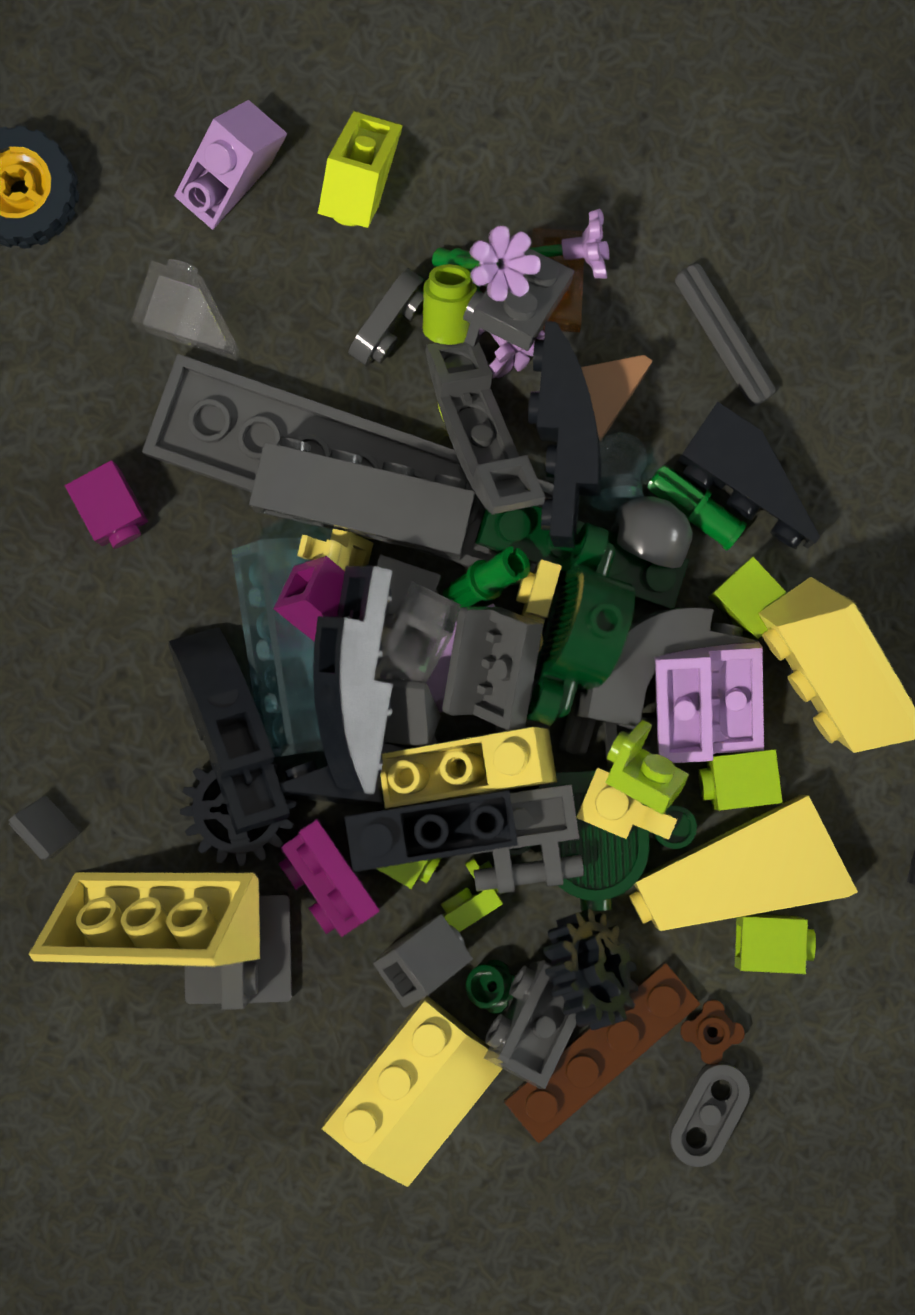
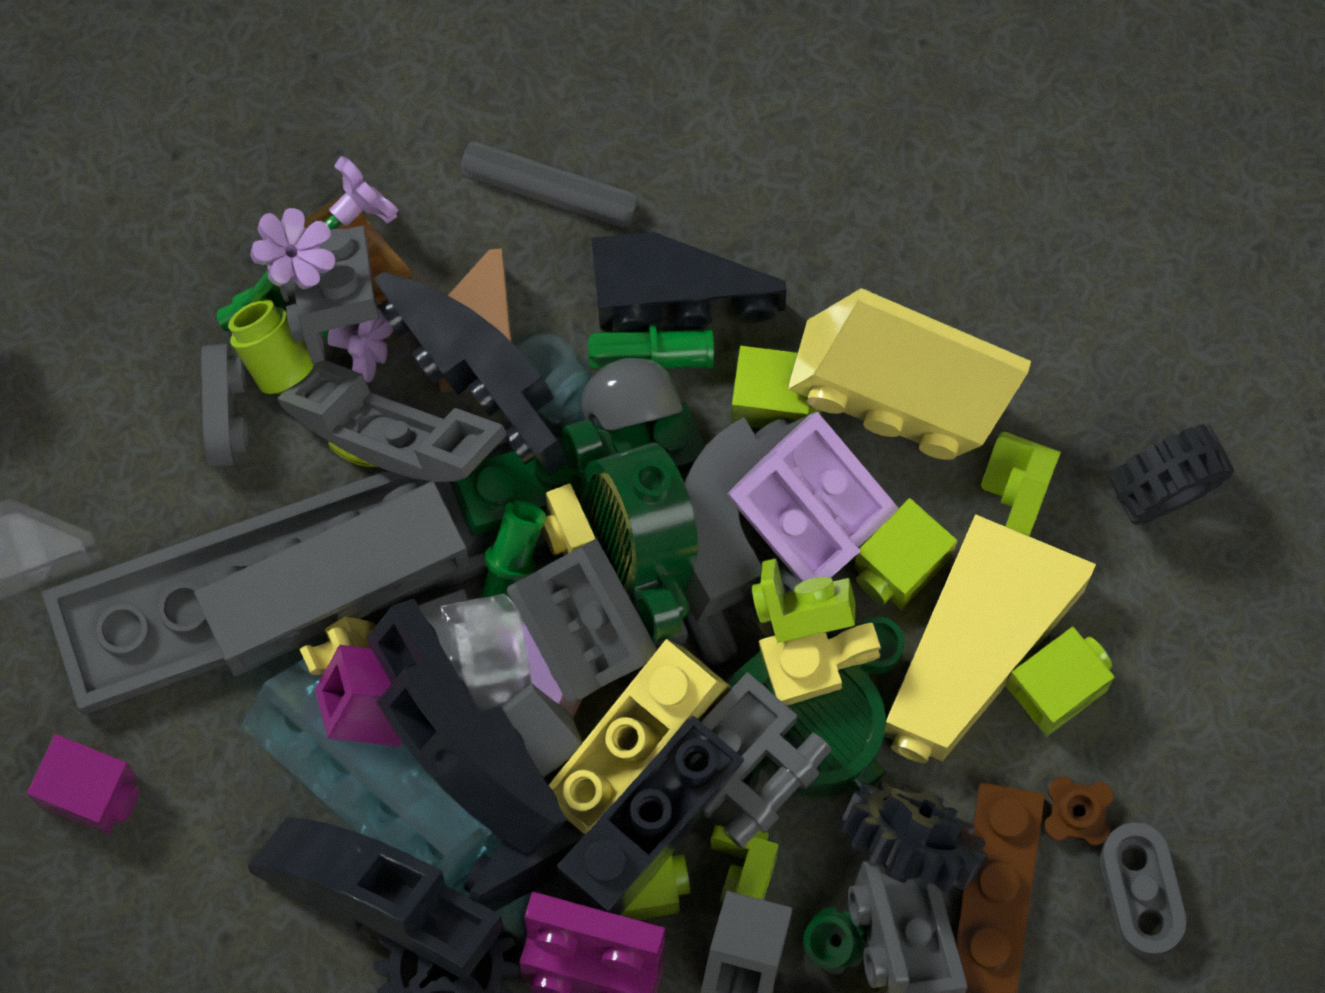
camera: 40 degrees left, 15 degrees down
(358, 169) = (86, 298): neon yellow slope -> none
(865, 794) = (1021, 476): none -> lime bracket

